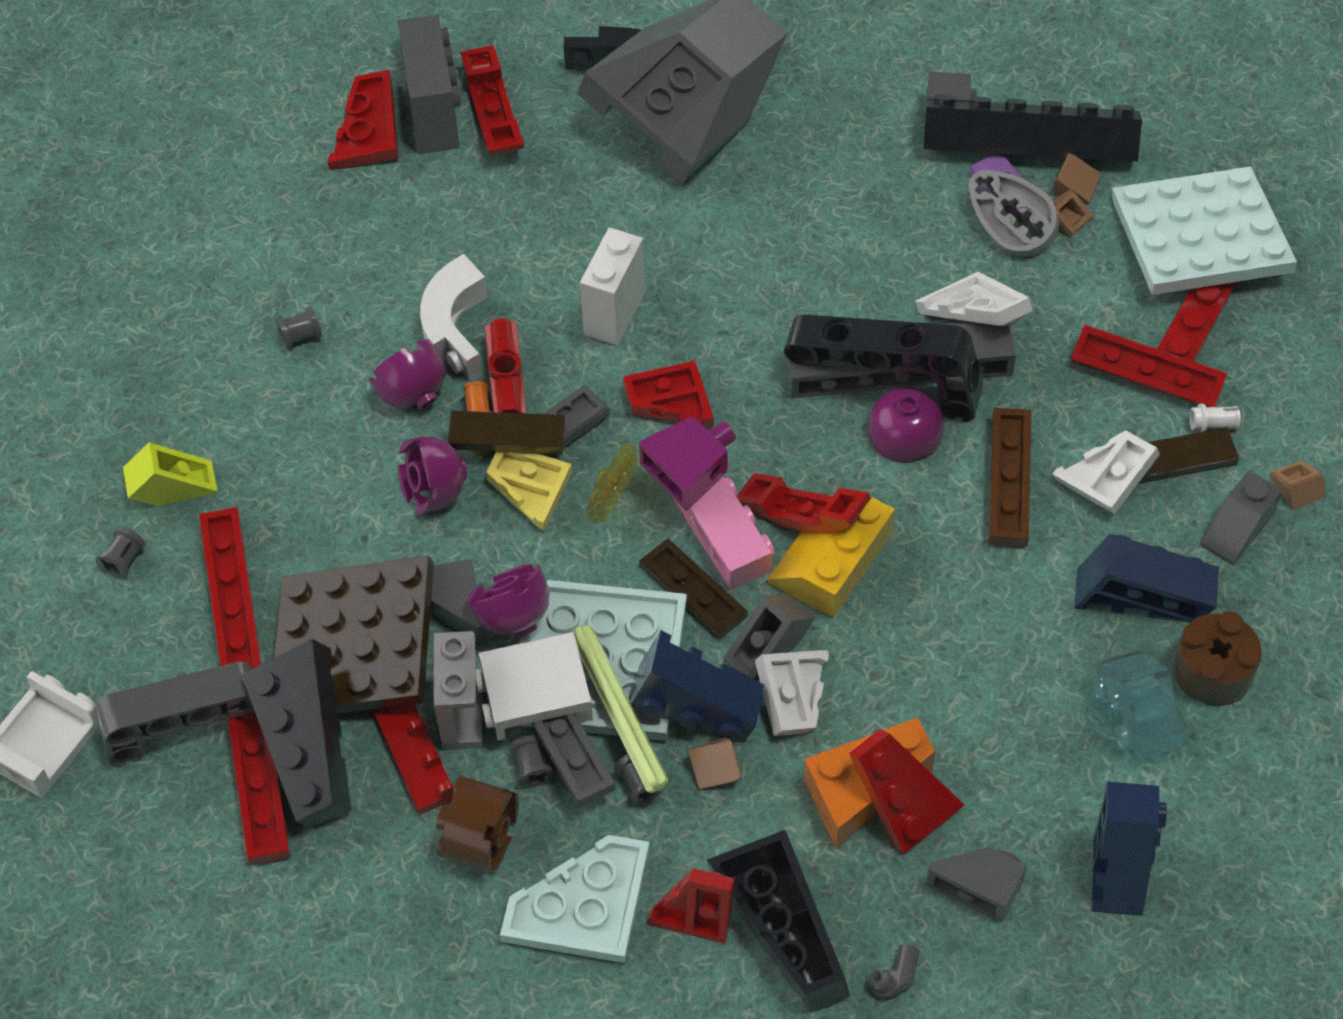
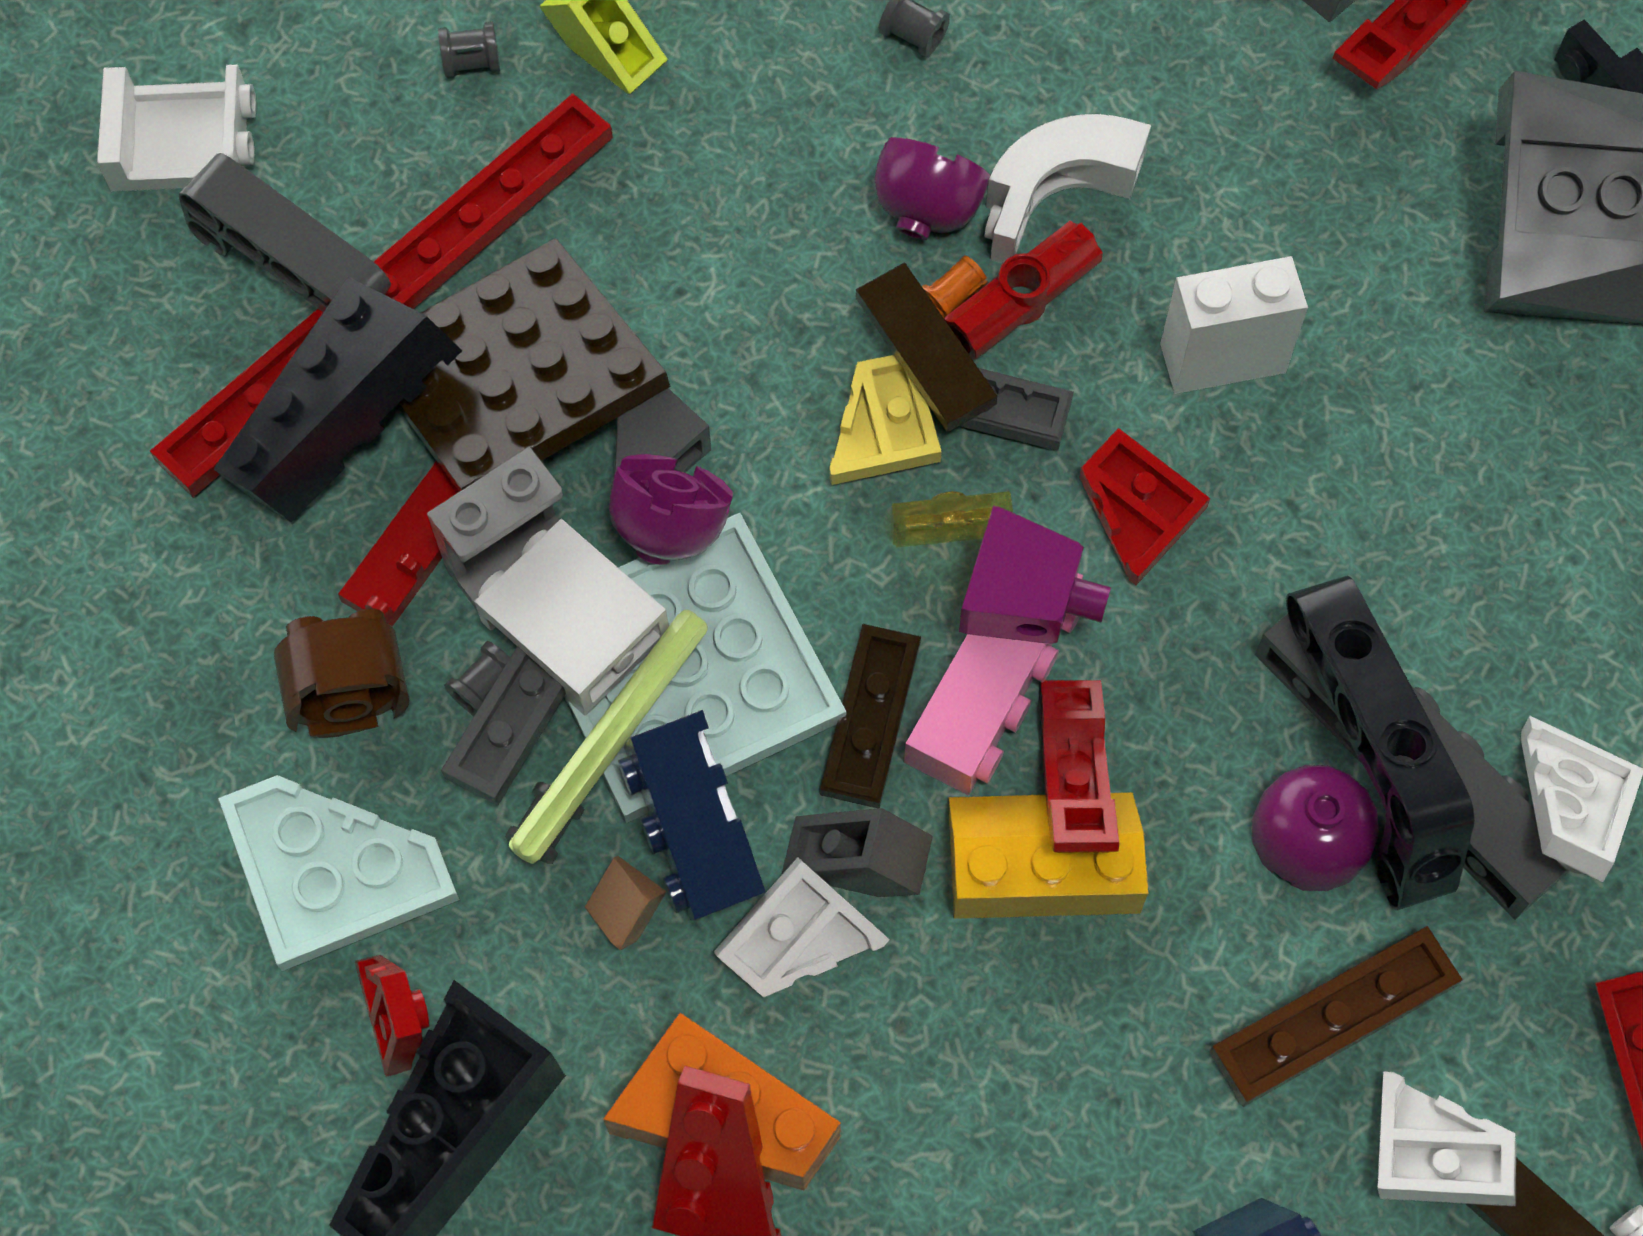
camera: 55 degrees right, 10 degrees up
(433, 467) = (809, 305): magenta cylinder -> none

